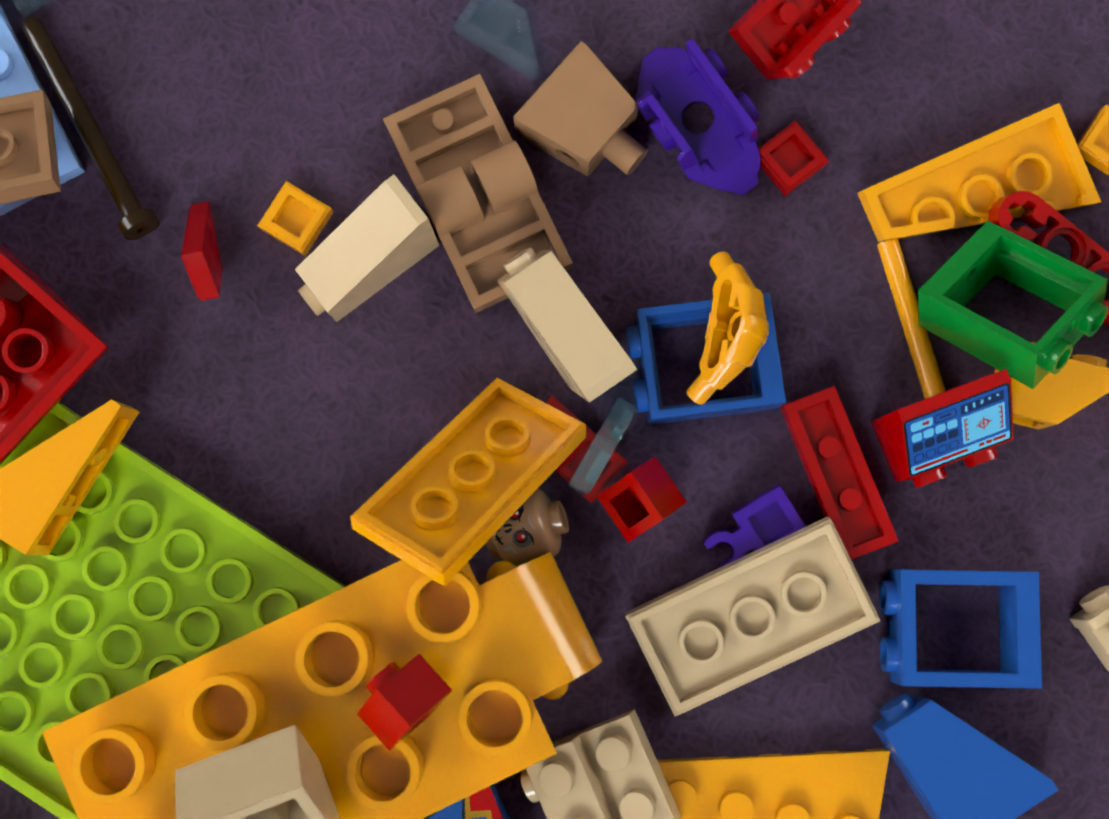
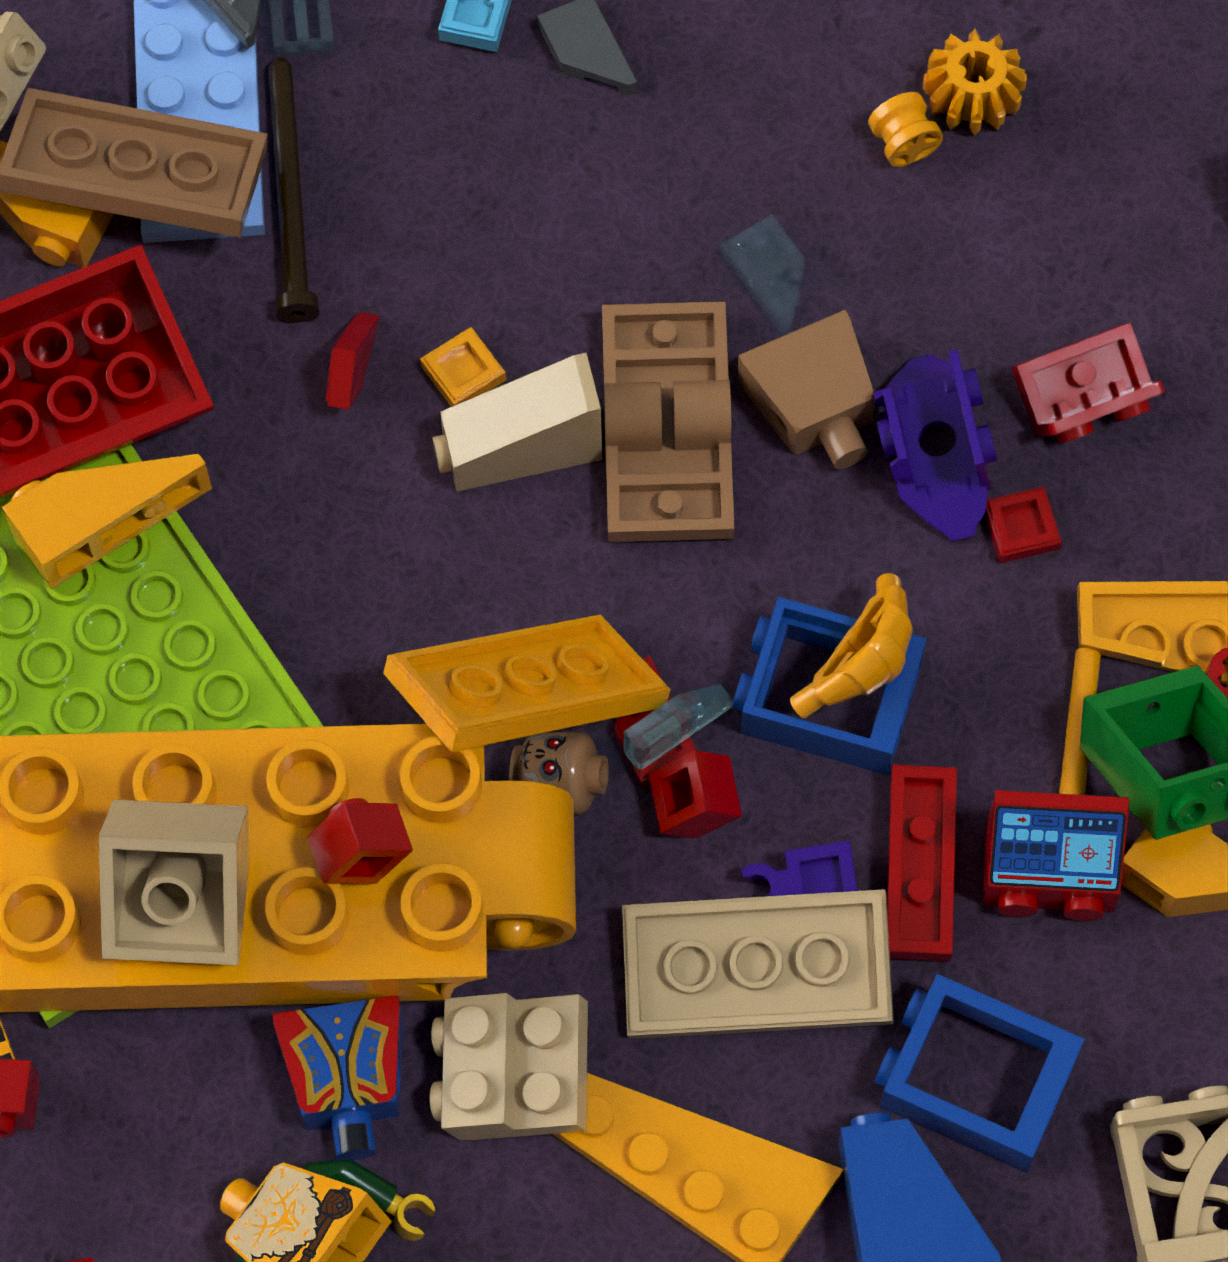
camera: 20 degrees right, 15 degrees down
(565, 324) = (693, 575): tan slope -> none

